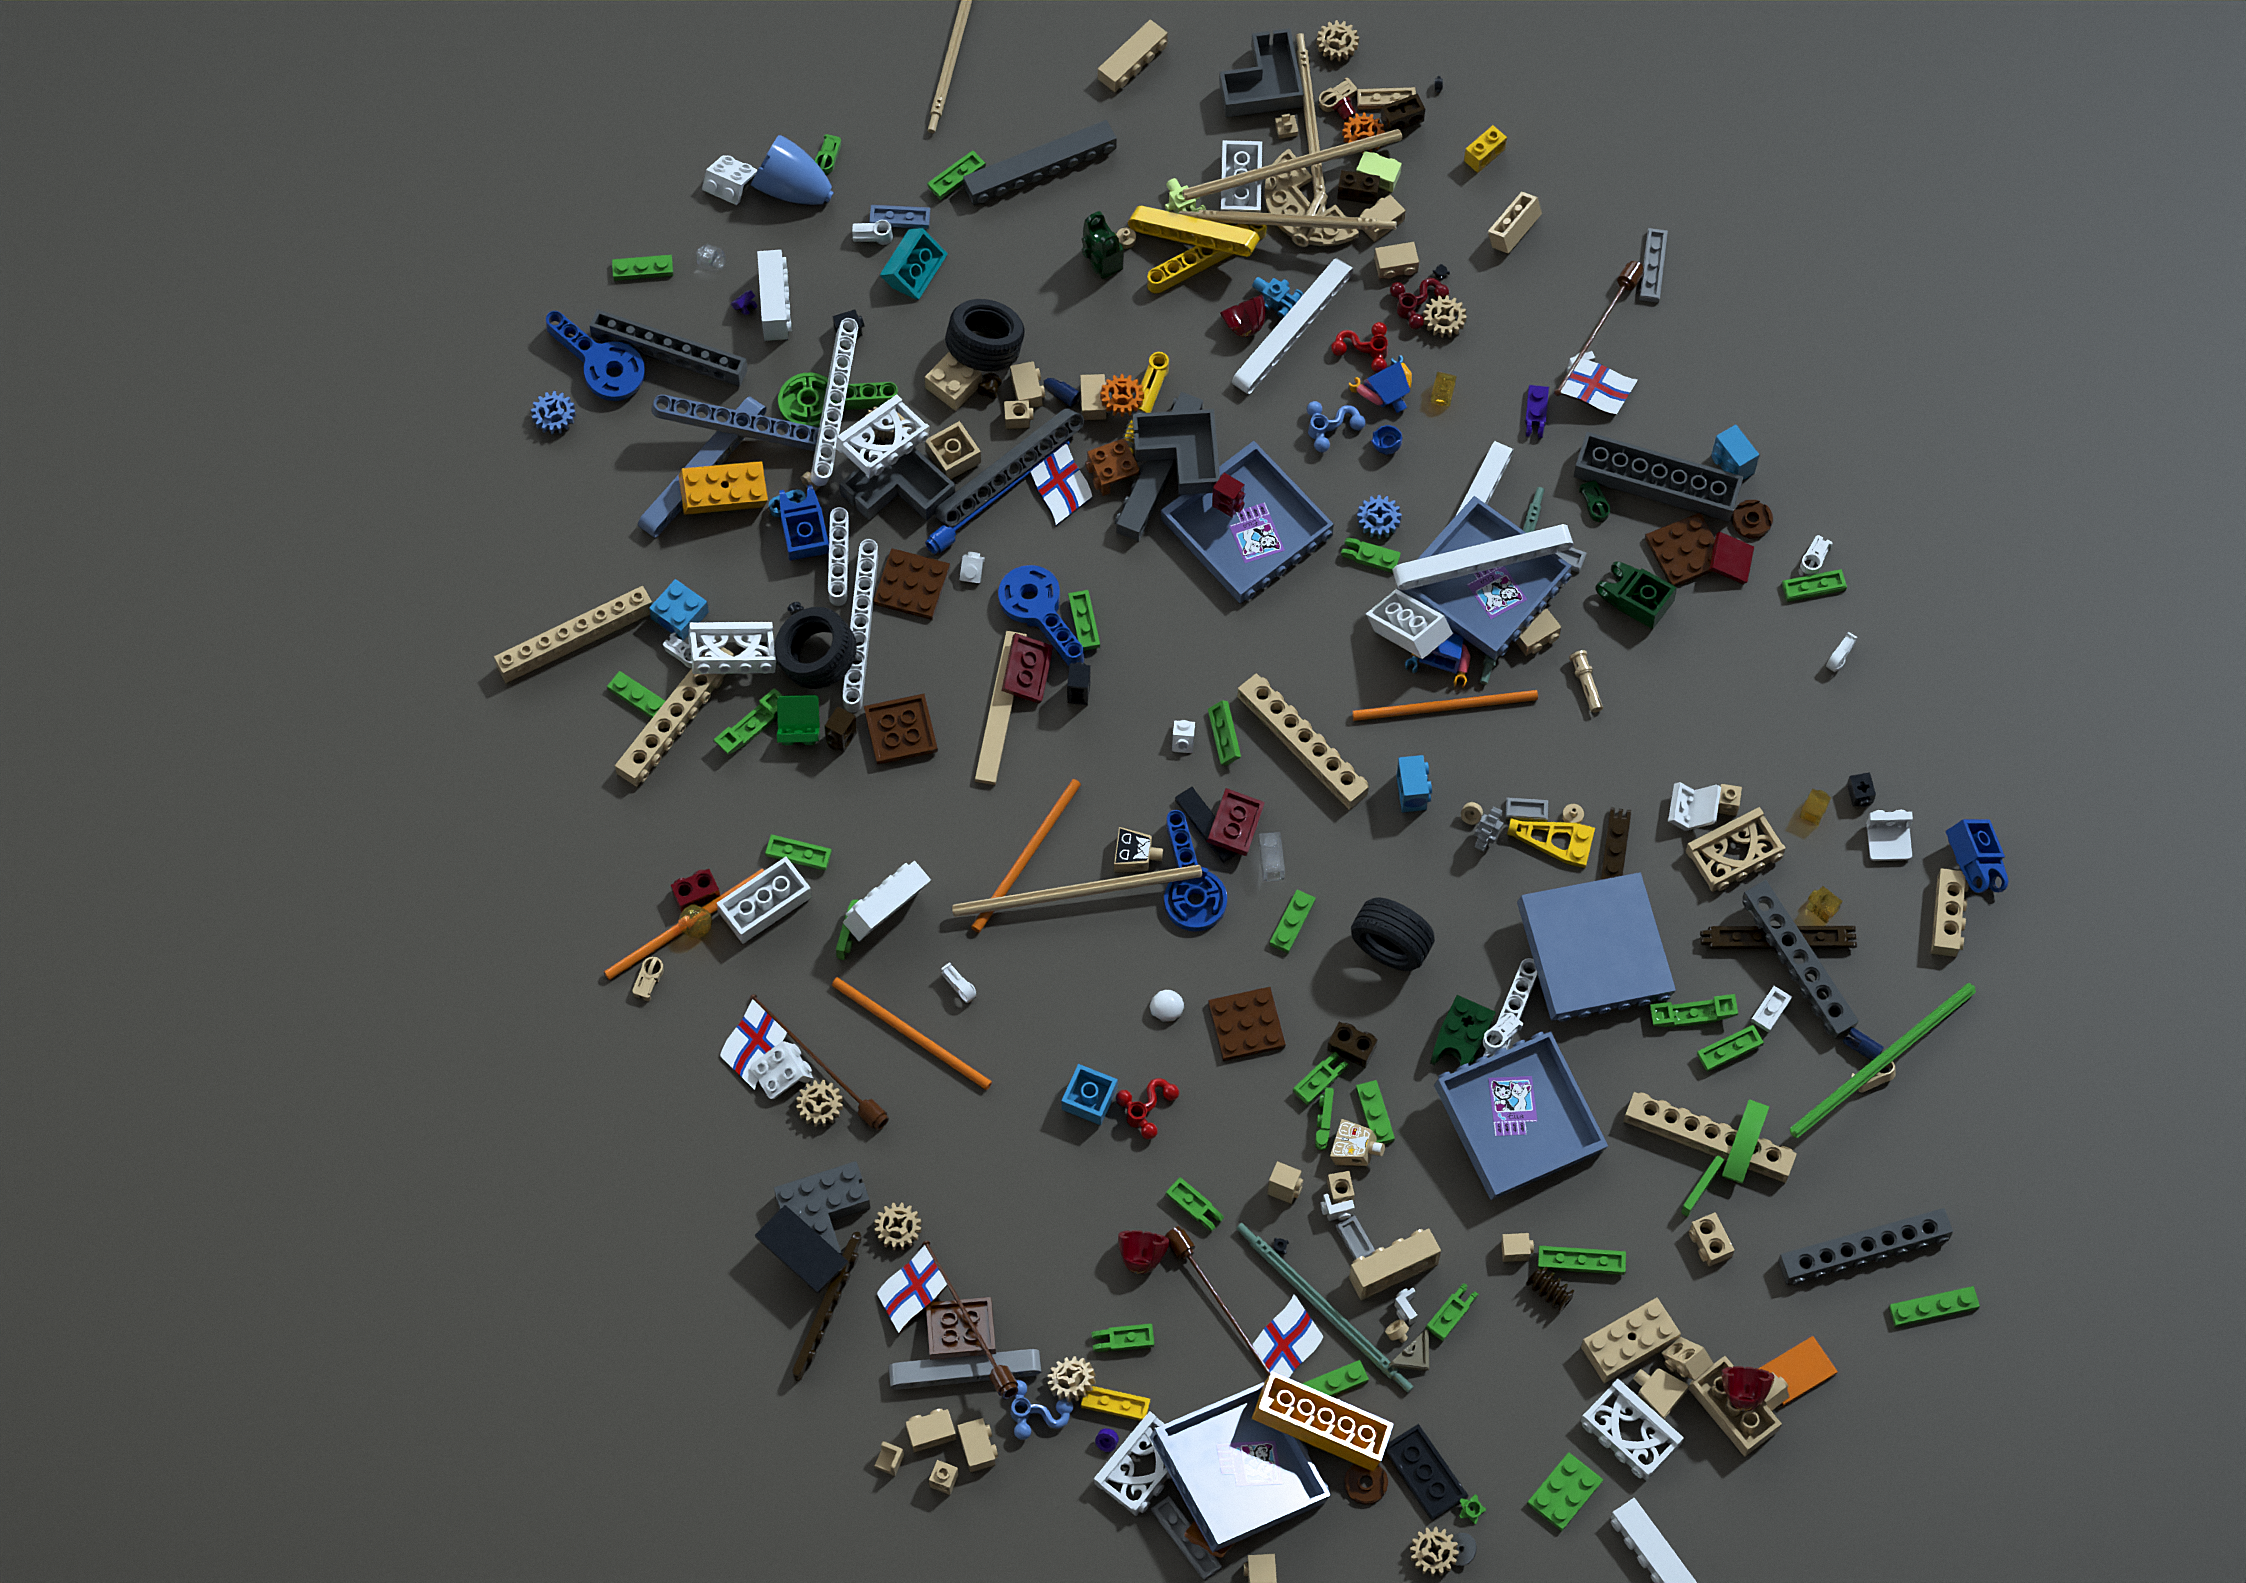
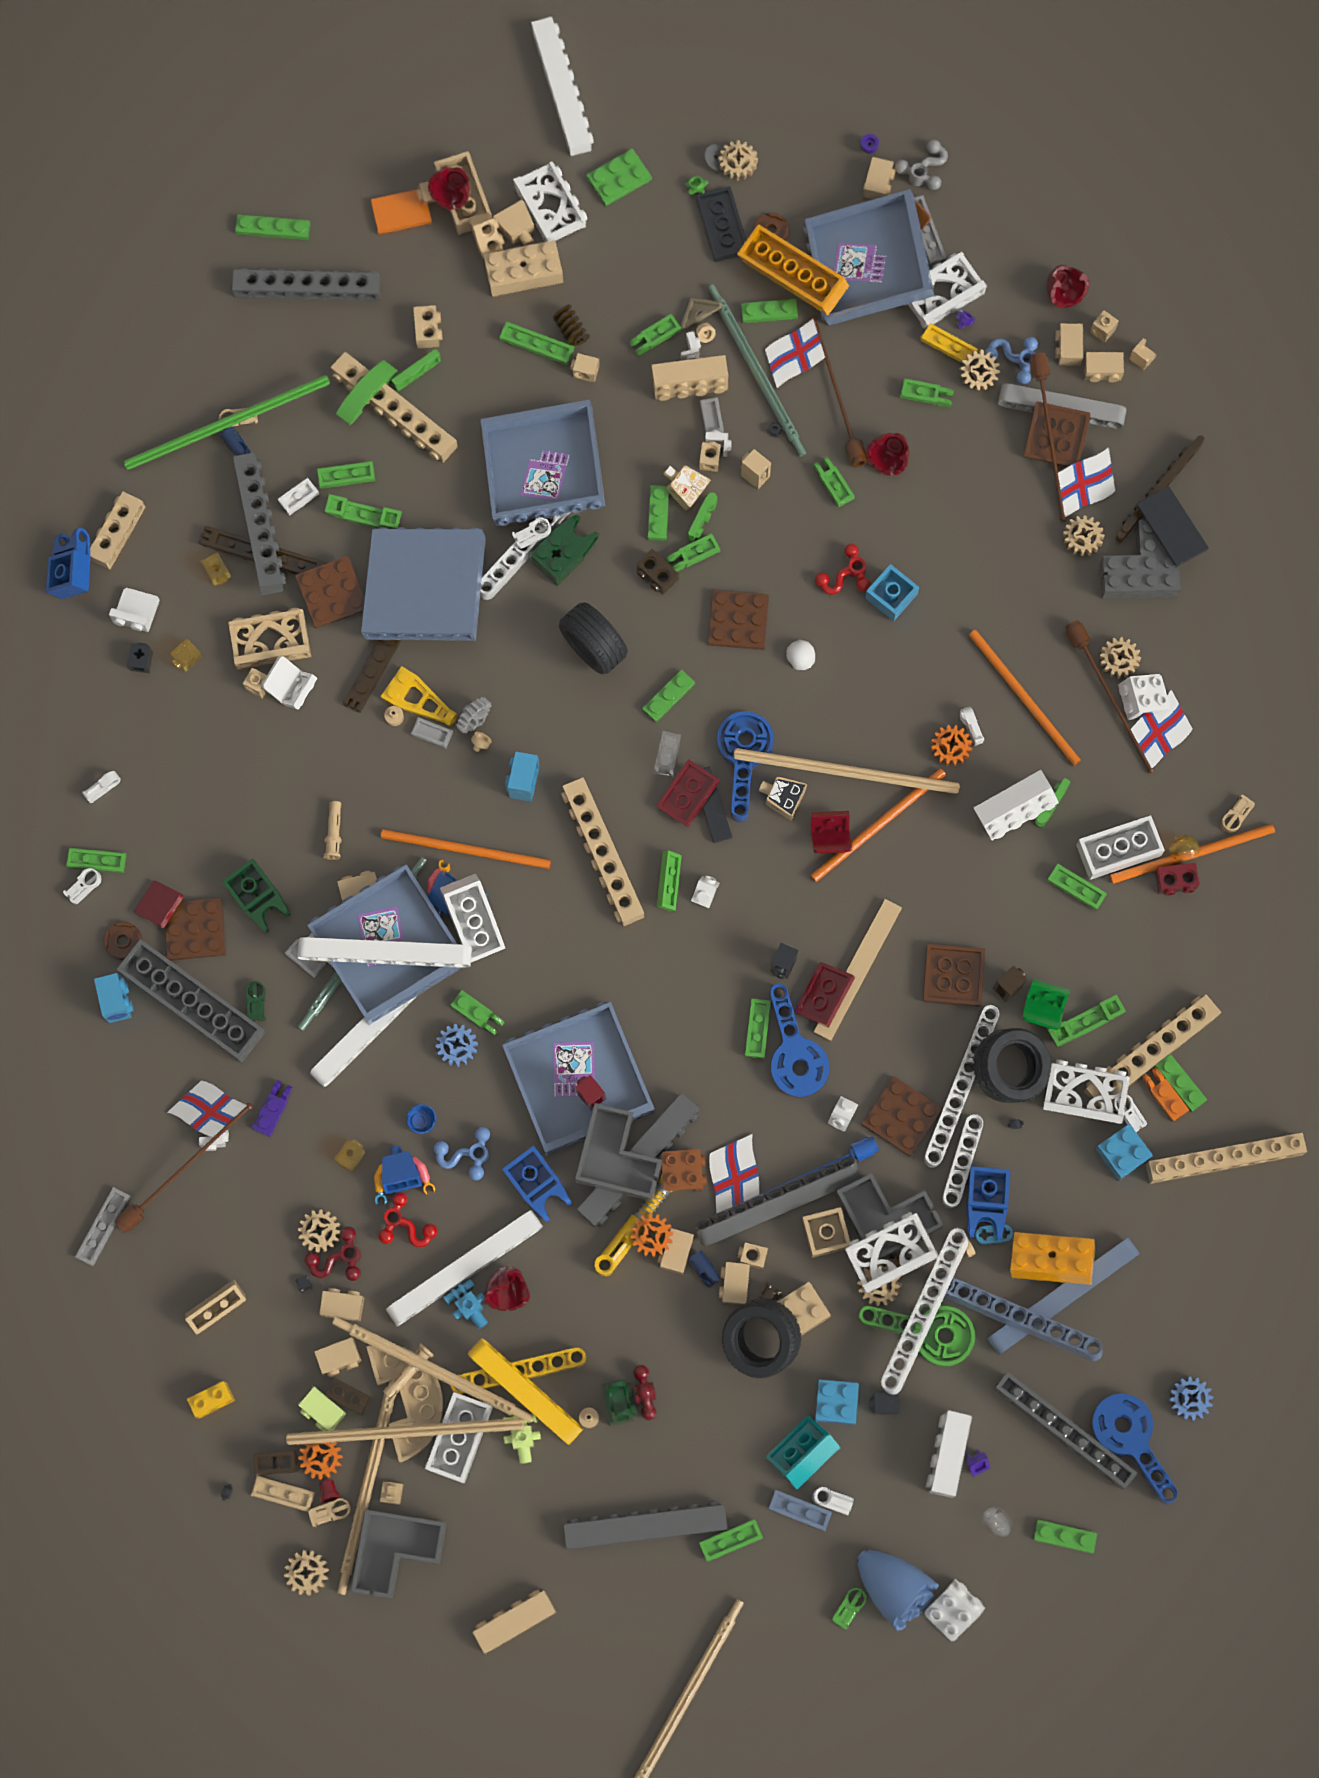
camera: 160 degrees left, 10 degrees up
(649, 678) = (1166, 1096): none -> orange hinge
(895, 312) = (836, 1402): none -> dark azure brick
(964, 956) = (958, 747): none -> orange gear
(1003, 1509) = (1067, 286): none -> dark red hair
(1072, 823) = (830, 832): none -> dark red bracket
(1081, 267) = (645, 1392): none -> dark red piece
(1253, 415) = (536, 1189): none -> blue brick
(1692, 916) = (331, 591): none -> reddish brown plate

